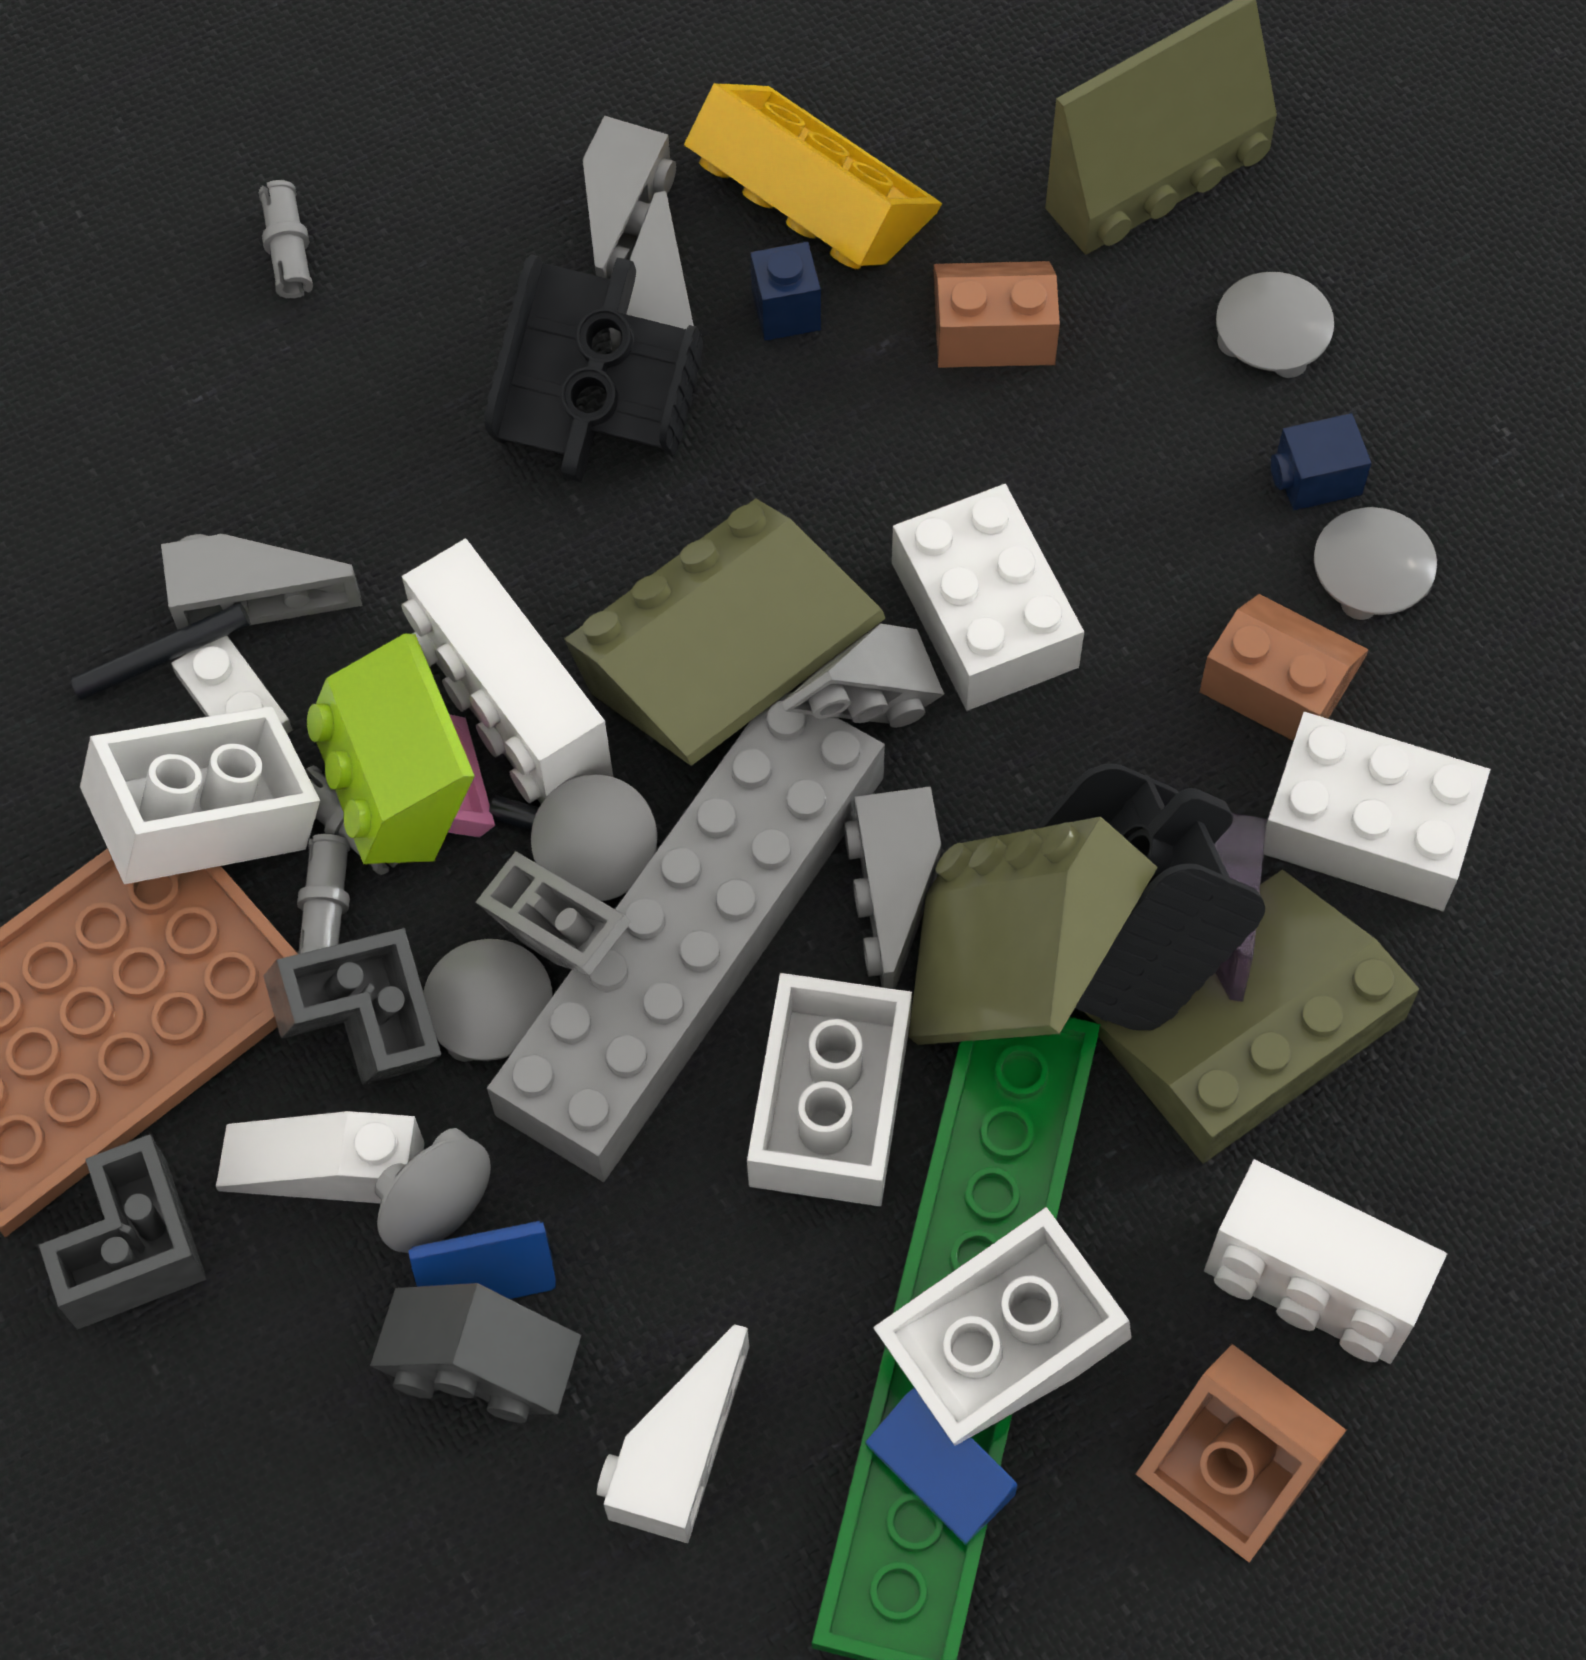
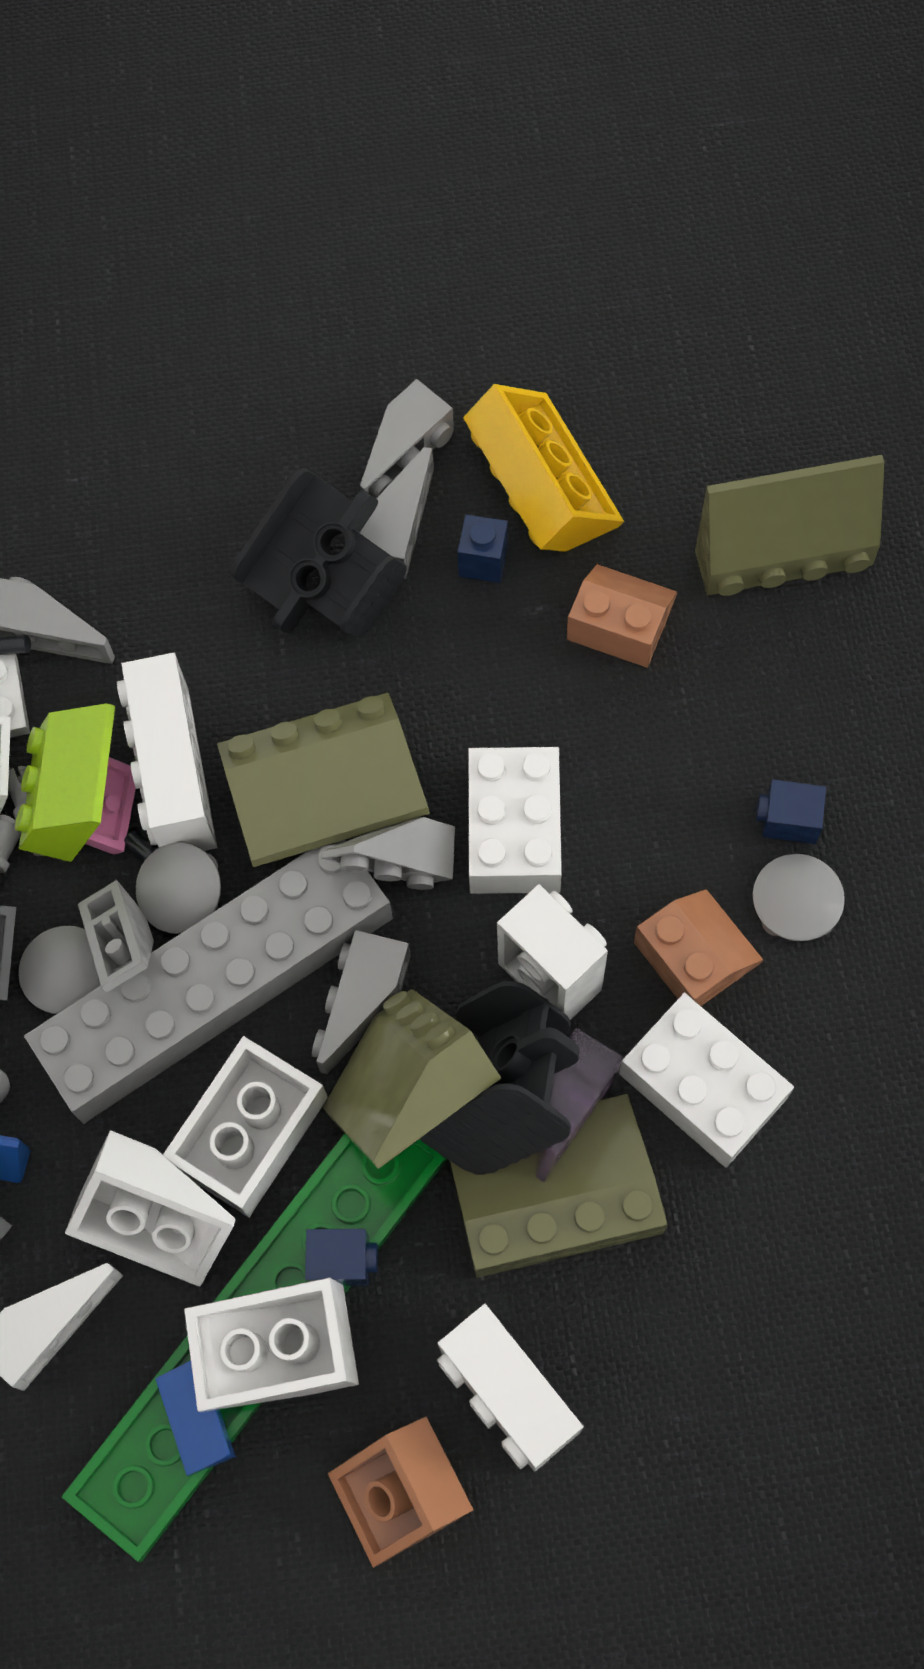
camera: 25 degrees right, 5 degrees up
(285, 239) = (175, 389): light grey pin -> none
(759, 1238) = (149, 1211): none -> white slope
(1029, 1183) = (340, 1255): none -> dark blue brick
(1123, 711) = (552, 951): none -> white brick
(1274, 322) = (812, 695): light grey dish -> none

